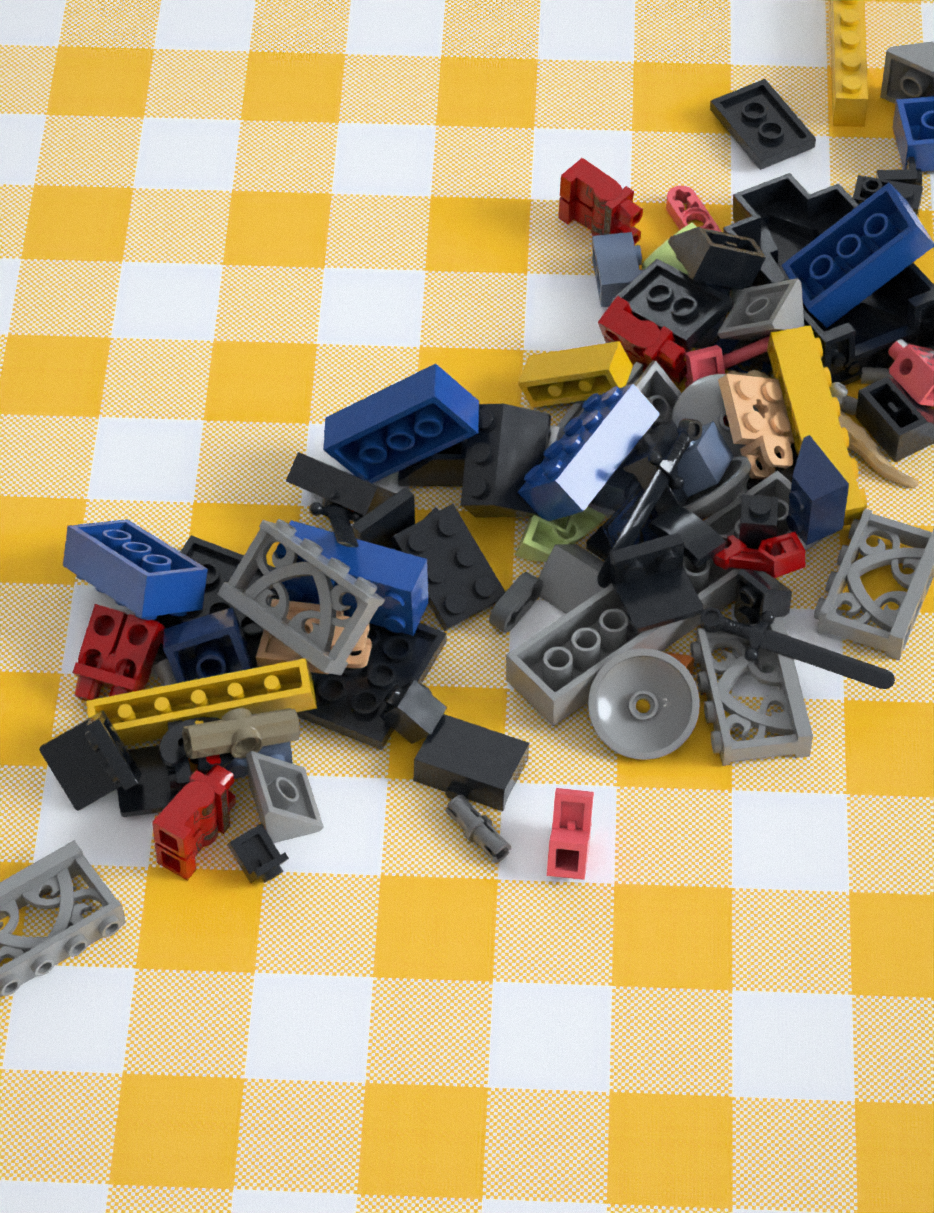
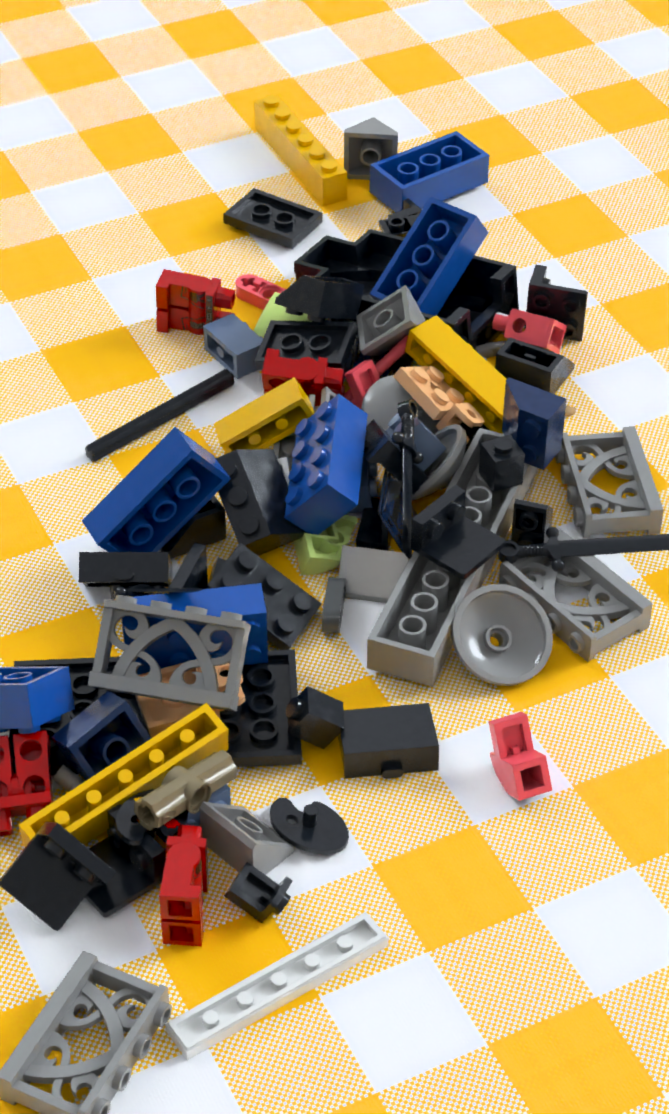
camera: 30 degrees left, 10 degrees down
(225, 945) = (276, 985): none -> white tile
(355, 820) = (316, 830): none -> black piece
(478, 828) = (432, 789): flat silver pin -> none
(495, 320) = (159, 415): none -> black axle
(699, 538) = (437, 484): black slope -> none
(775, 555) = (531, 483): red piece -> none

